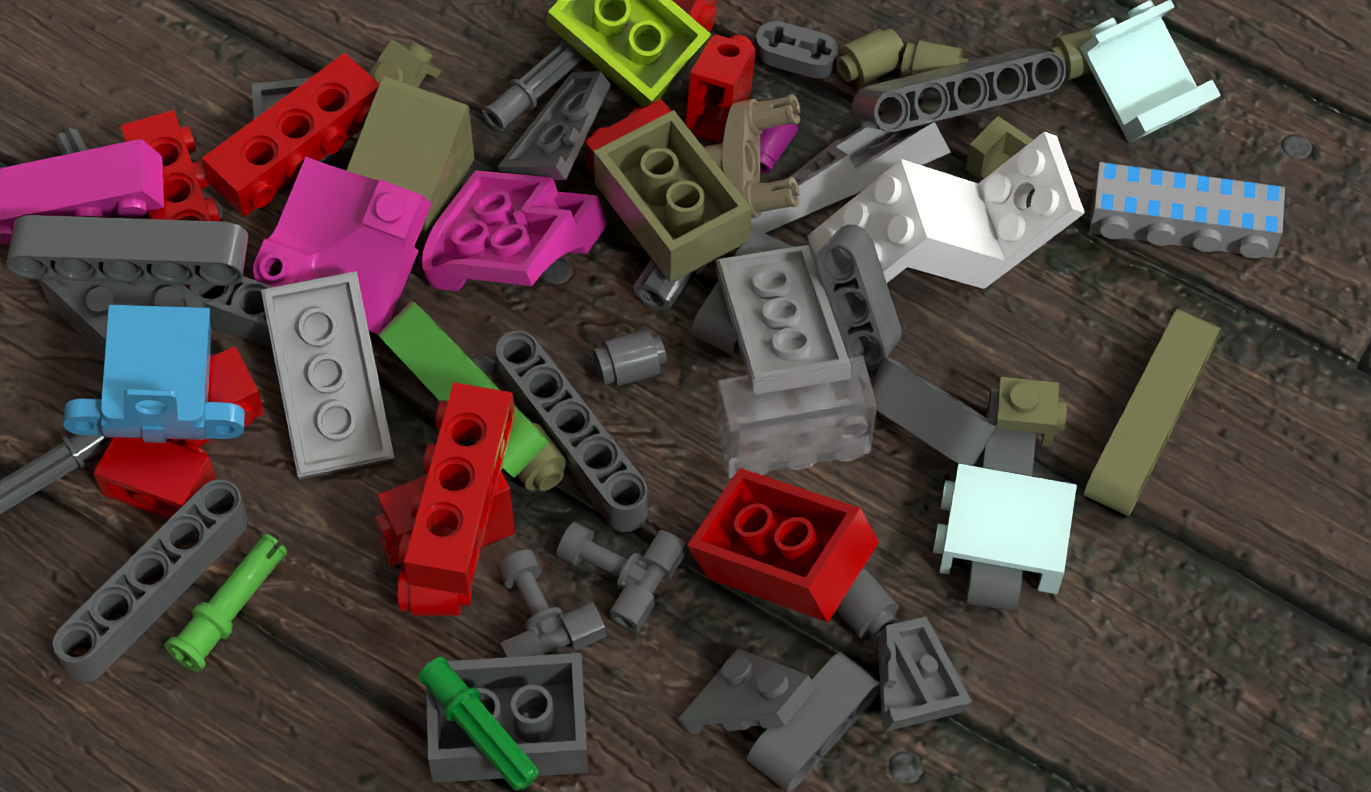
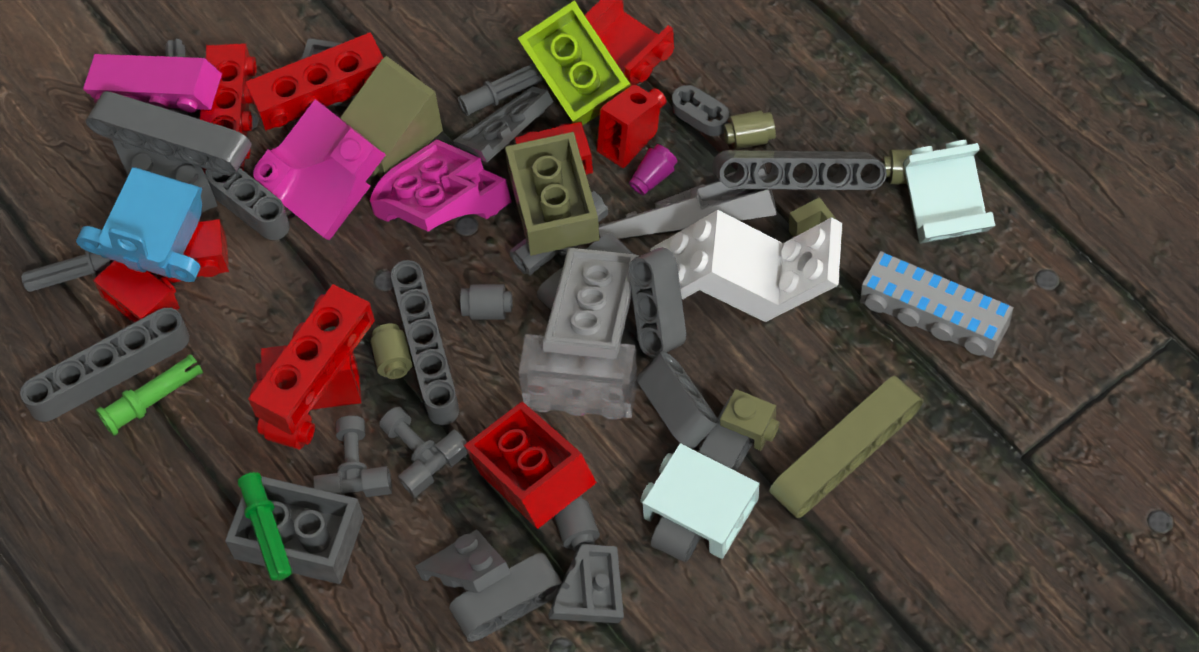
camera: 25 degrees right, 0 degrees up
(327, 375) = (273, 256): light grey tile -> none
(404, 64) = (416, 53): olive bracket -> none
(441, 362) = (354, 271): bright green beam -> none
(740, 152) = (618, 180): dark tan connector -> none
(928, 57) = (791, 140): olive brick -> none

